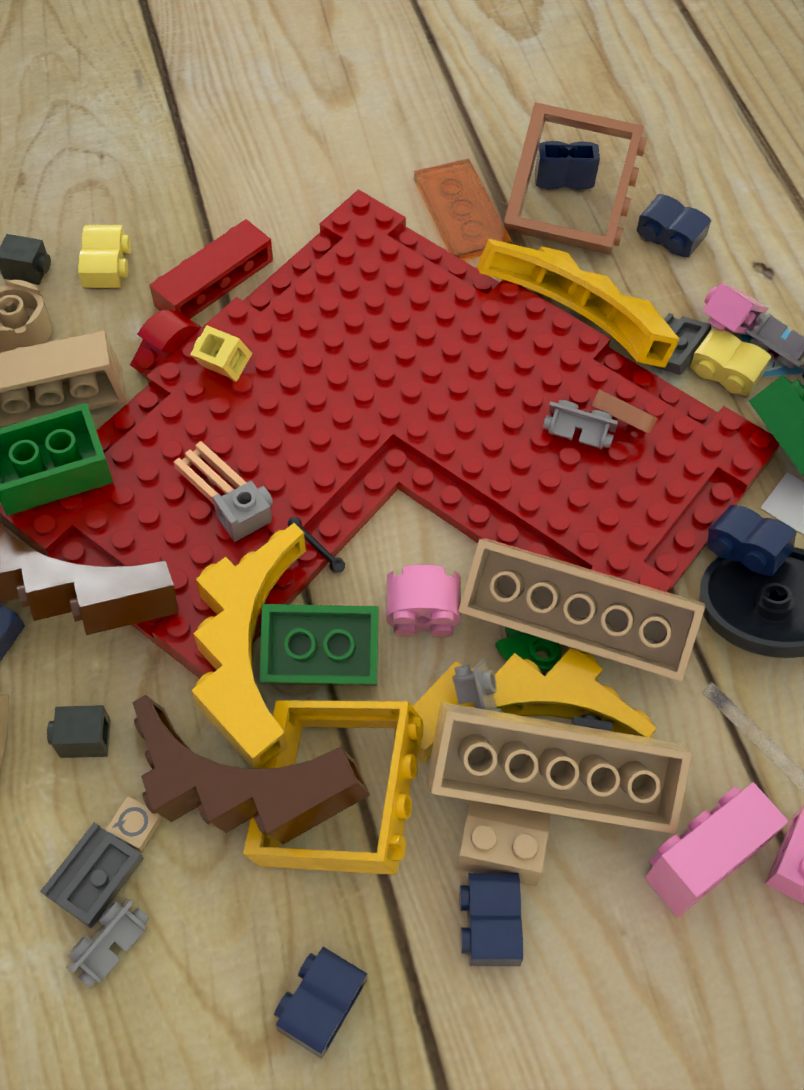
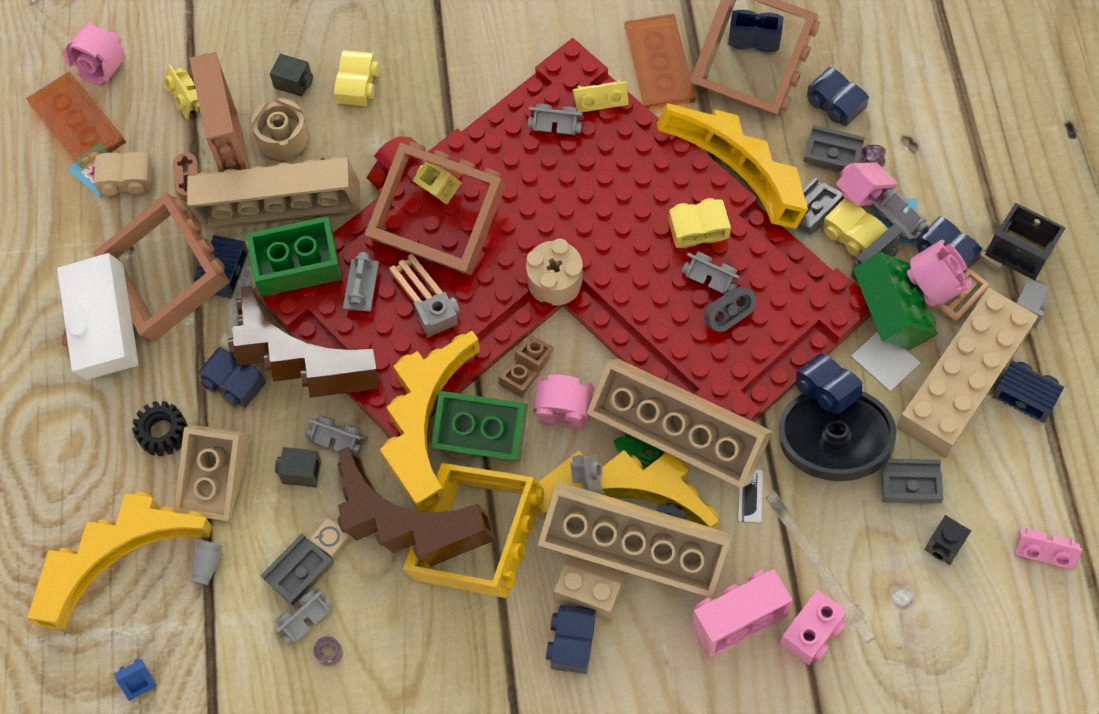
camera: 15 degrees right, 5 degrees up
(111, 679) = (325, 430): none -> light grey hinge
(138, 484) = (361, 283): none -> light grey hinge
(145, 975) = (326, 642): none -> bush
(213, 270) = (442, 101): red brick -> none
(215, 436) = (481, 227): none -> nougat window
(320, 1002) = (443, 676): dark blue brick -> none
(335, 564) = (503, 362): black hinge -> none
(365, 564) = (526, 366): none -> medium nougat slope
(369, 269) = (545, 117): none -> light grey hinge
(387, 442) = (554, 272): none -> tan brick
(405, 243) = (601, 96): none -> light yellow hinge
(552, 369) = (699, 223): none -> light yellow brick
(607, 468) = (728, 310): none -> dark grey plate
(624, 411) = (749, 266): nougat beam -> none
(681, 280) = (832, 148): none -> dark grey plate
(683, 700) = (751, 500): none -> sticker
(731, 277) = (873, 153): none -> bush
(773, 371) = (886, 243): none -> dark grey plate

